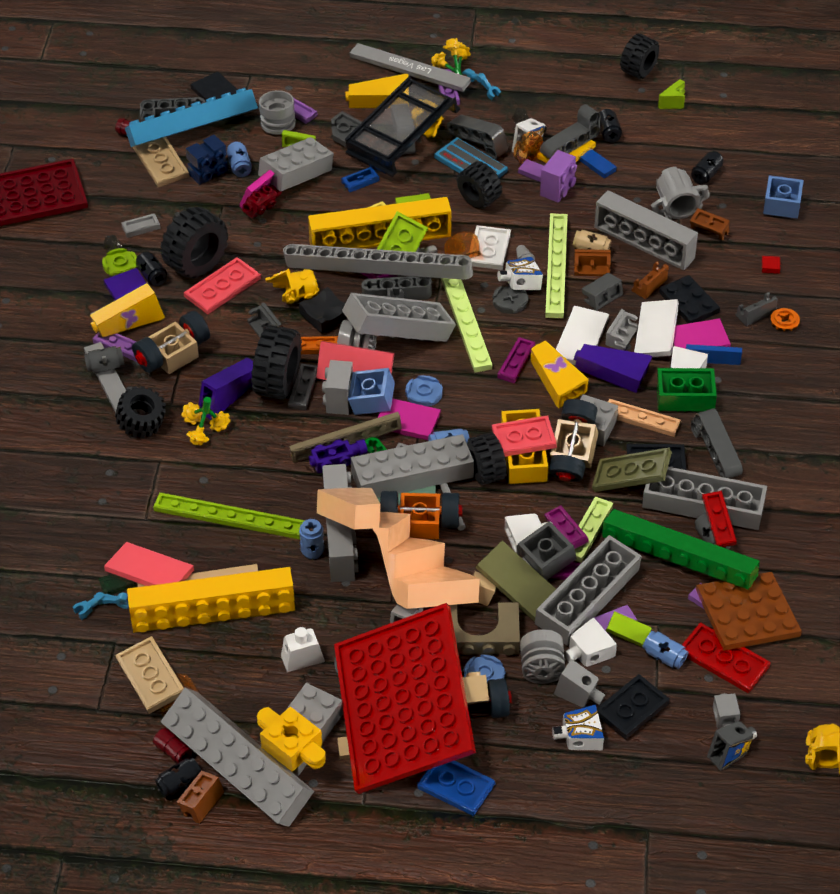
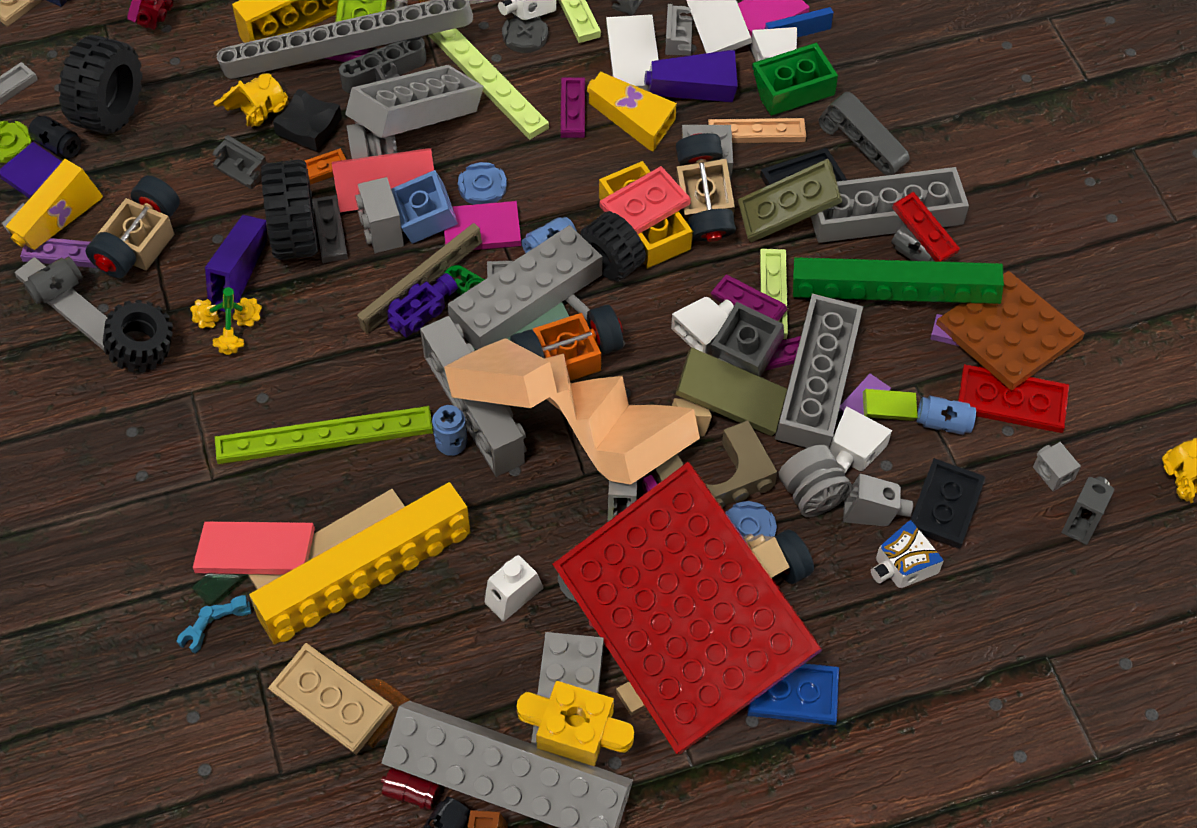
camera: 25 degrees left, 10 degrees up
(222, 285) = (157, 129): coral tile -> none

